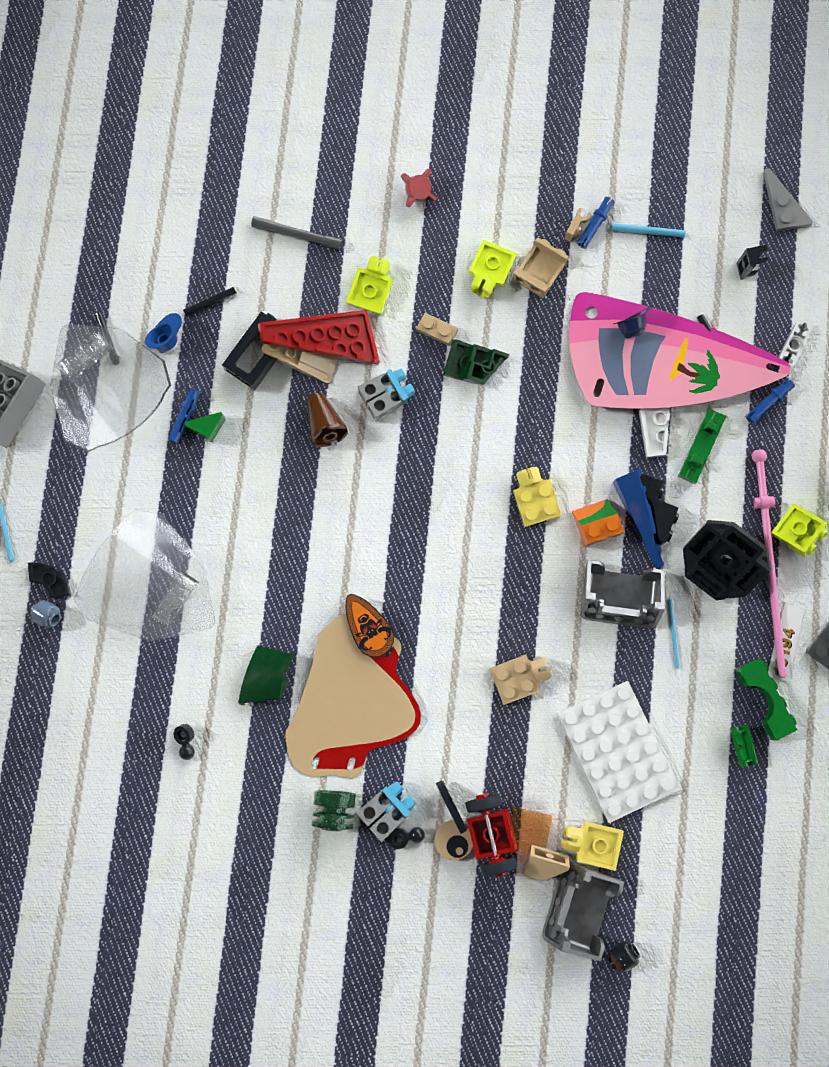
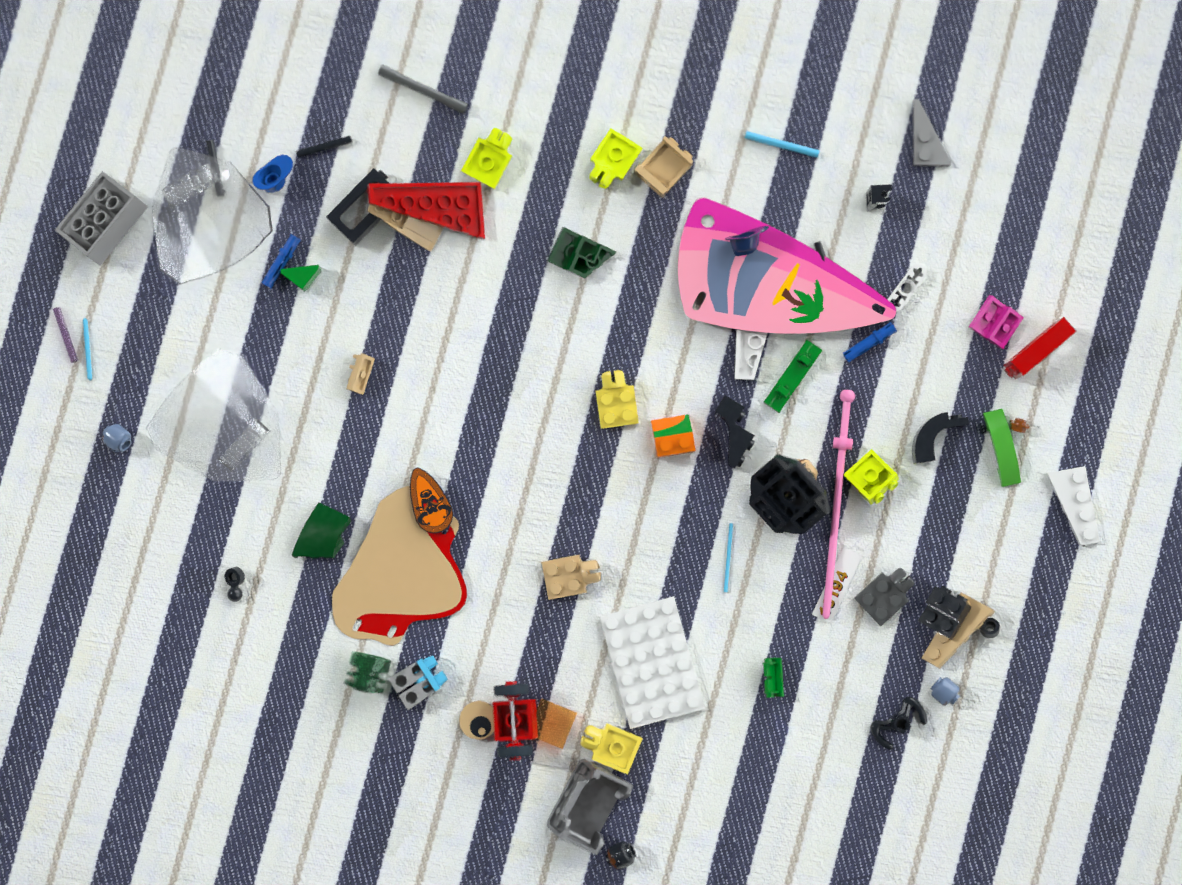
camera: 10 degrees right, 5 degrees up
(50, 578) = (125, 403): black tile -> none
(278, 511) = (360, 373): none -> tan plate
(324, 421) = (419, 290): reddish brown cone -> none
(385, 393) = (488, 269): light grey hips -> none
(415, 835) = (443, 709): black plate -> none
(418, 187) = (553, 63): piece -> none
(437, 329) = (548, 213): tan plate -> none
(451, 806) = (480, 687): black tile -> none
(544, 863) = (560, 756): tan slope -> none
(575, 229) = (706, 131): tan plate -> none
(599, 216) = (733, 122): blue pin -> none
(623, 597) = (683, 513): flat silver windscreen -> none
(635, 502) = (713, 419): blue wedge -> none
(778, 721) = (812, 659): green arch -> none

